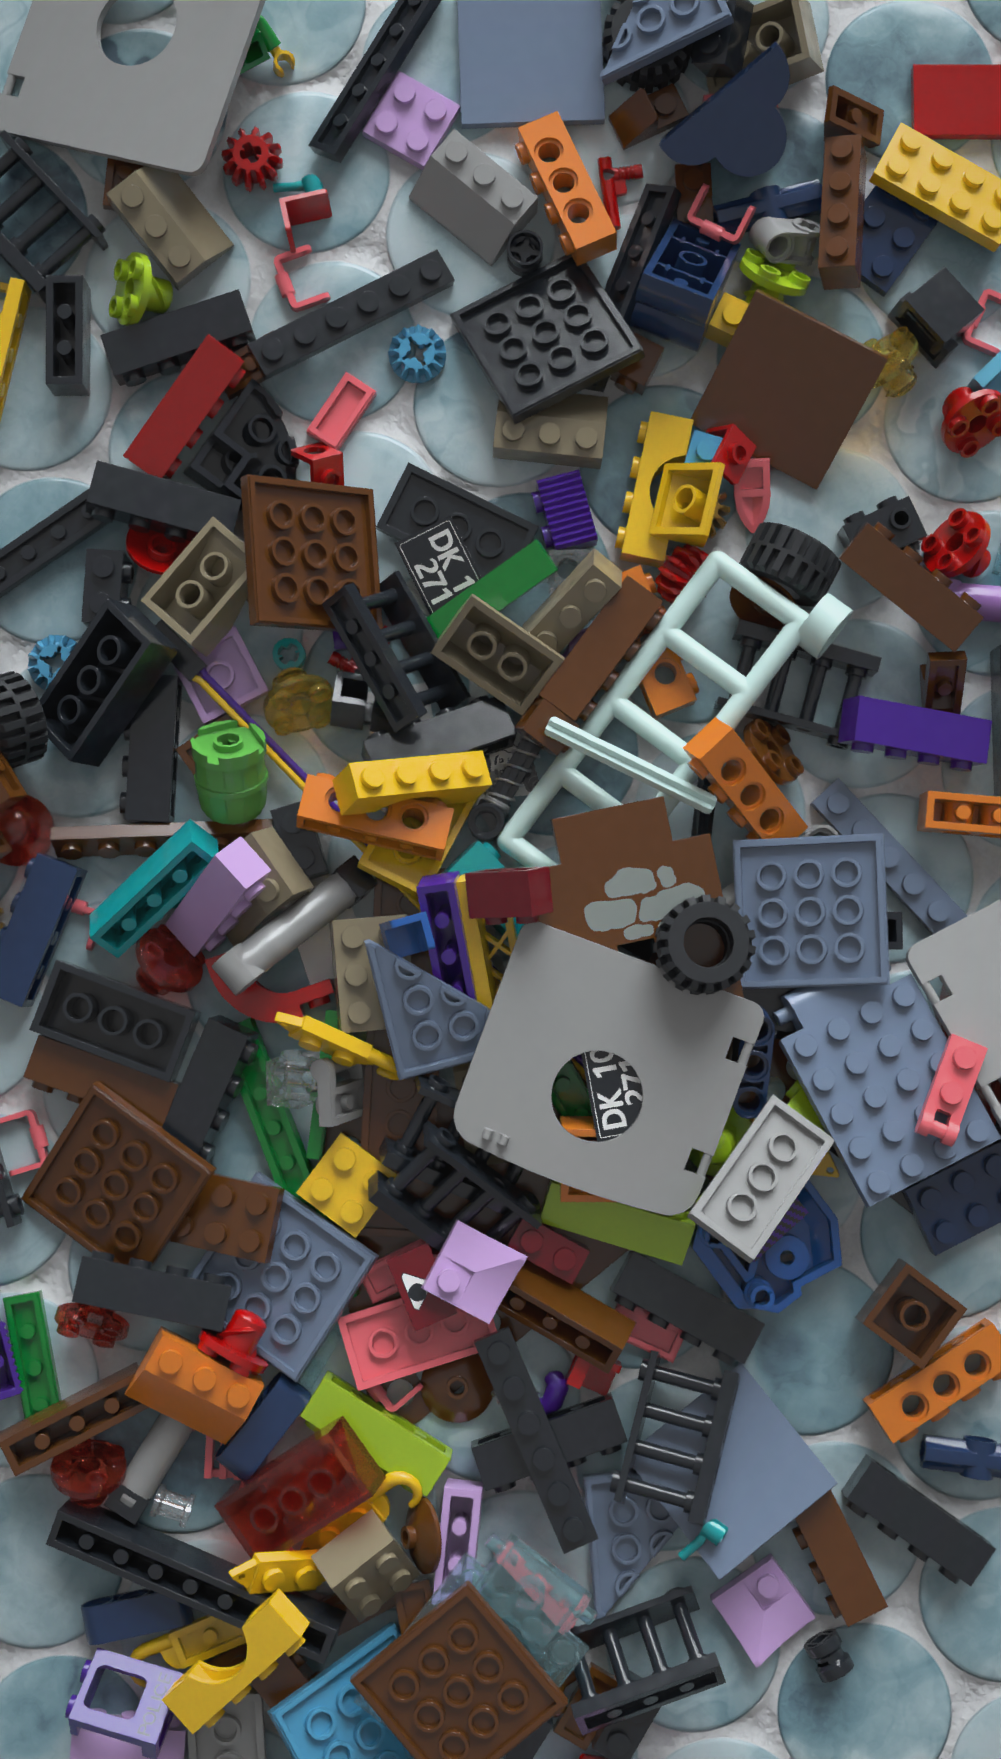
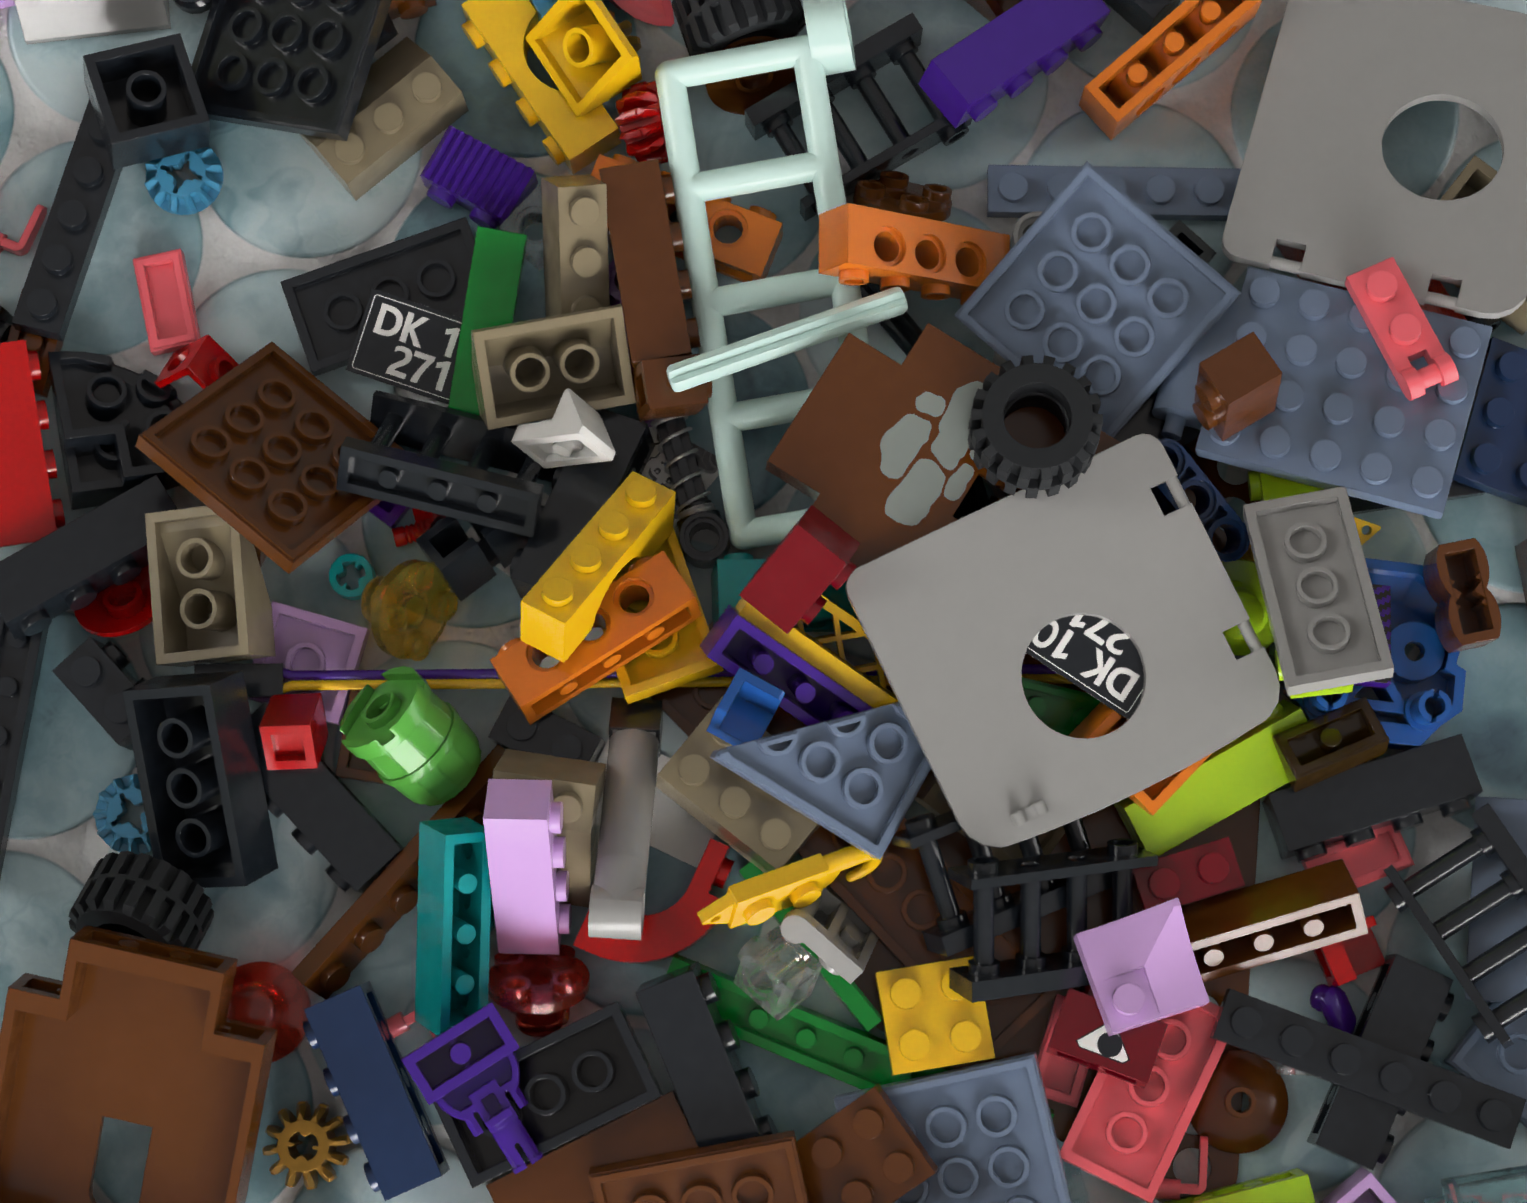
camera: 40 degrees left, 5 degrees down
(85, 972) = (470, 1073): none -> dark purple brick
(175, 706) = (294, 731): none -> red panel
(434, 296) = (146, 101): none -> black brick
(469, 701) = (571, 437): none -> white slope
(691, 1260) = (1330, 744): none -> dark brown slope
(829, 1032) = (1236, 387): none -> reddish brown brick
(842, 1249) = (1458, 583): none -> reddish brown brick

